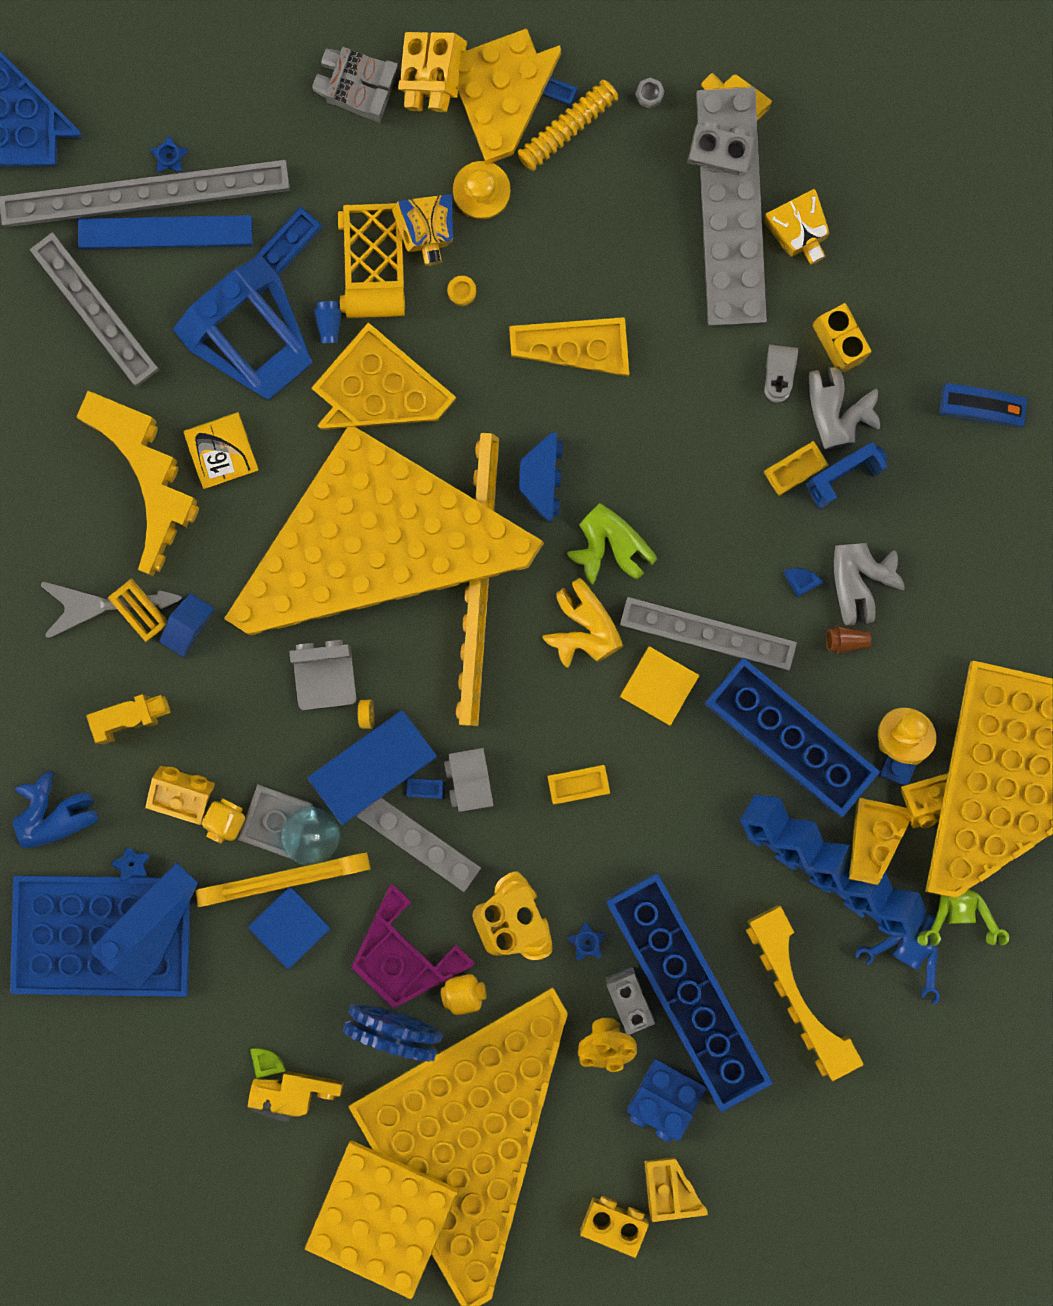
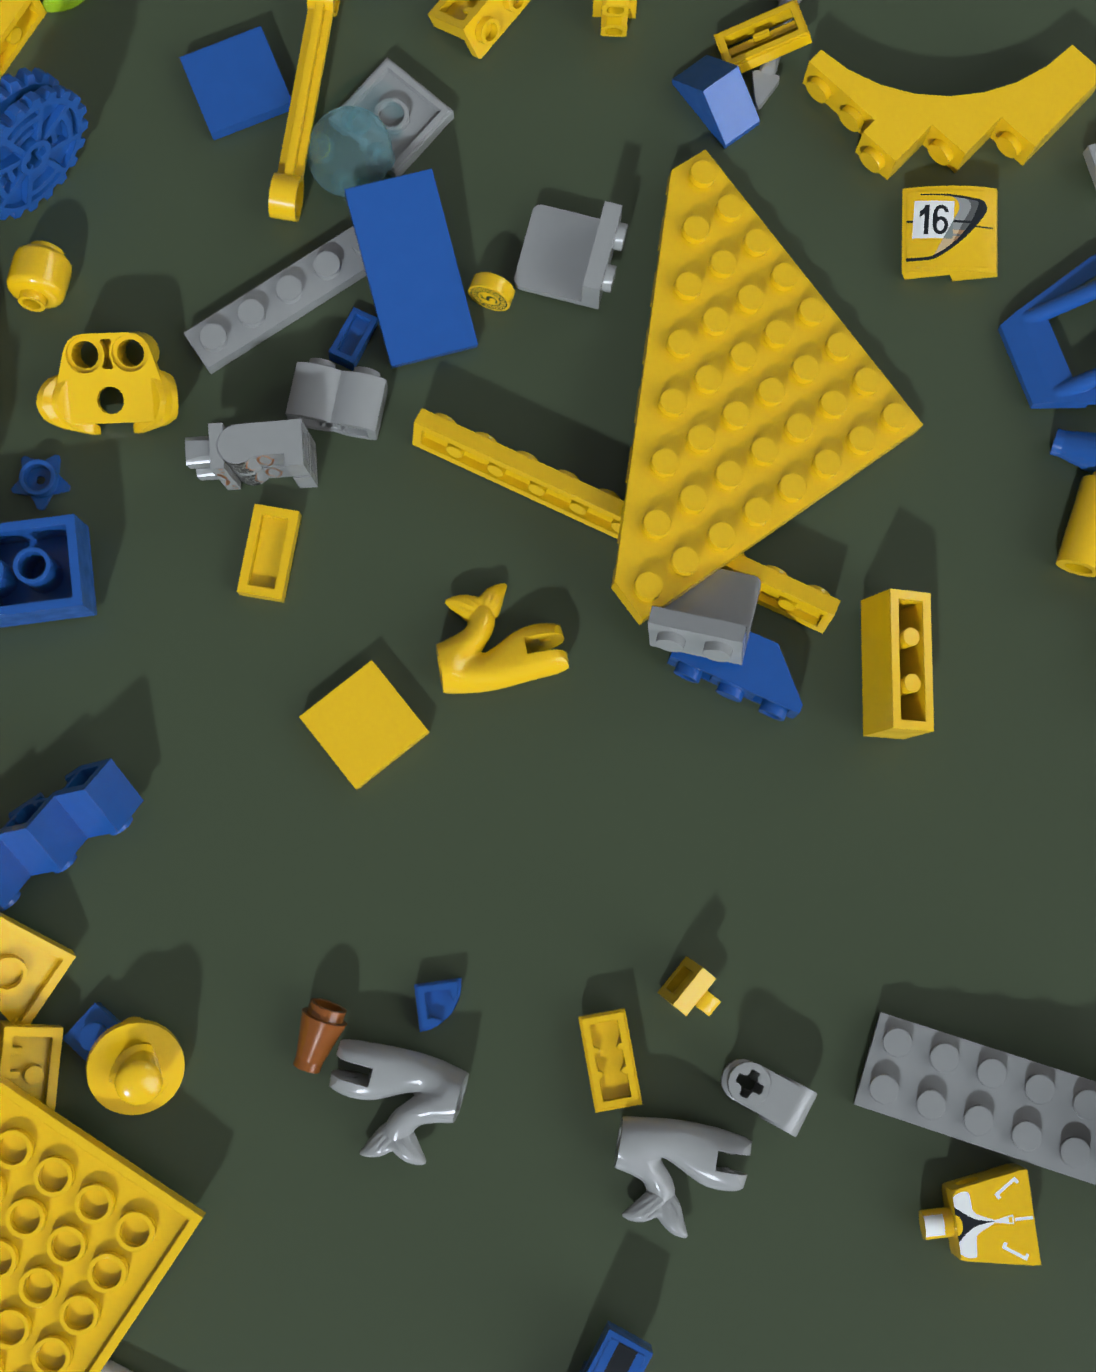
camera: 110 degrees right, 5 degrees down
(223, 821) = (420, 43): yellow head -> none
(379, 386) = (963, 486): yellow wing -> none
(394, 964) = (123, 201): magenta wing -> none
(461, 290) = (1064, 661): yellow tile -> none
(505, 387) = (897, 664): none -> yellow brick
(523, 503) = (709, 619): none -> light grey bracket
(525, 814) = (254, 453): none -> light grey hips
(578, 344) = (921, 804): yellow wing -> none
(622, 537) = (602, 754): lime piece -> none
(708, 633) = (410, 827): light grey plate -> none
(738, 438) = (689, 988): none -> yellow tile
(791, 737) = (201, 887): blue brick -> none
(819, 485) = (578, 1188): blue panel -> none
(832, 348) = (800, 1192): yellow piece -> none

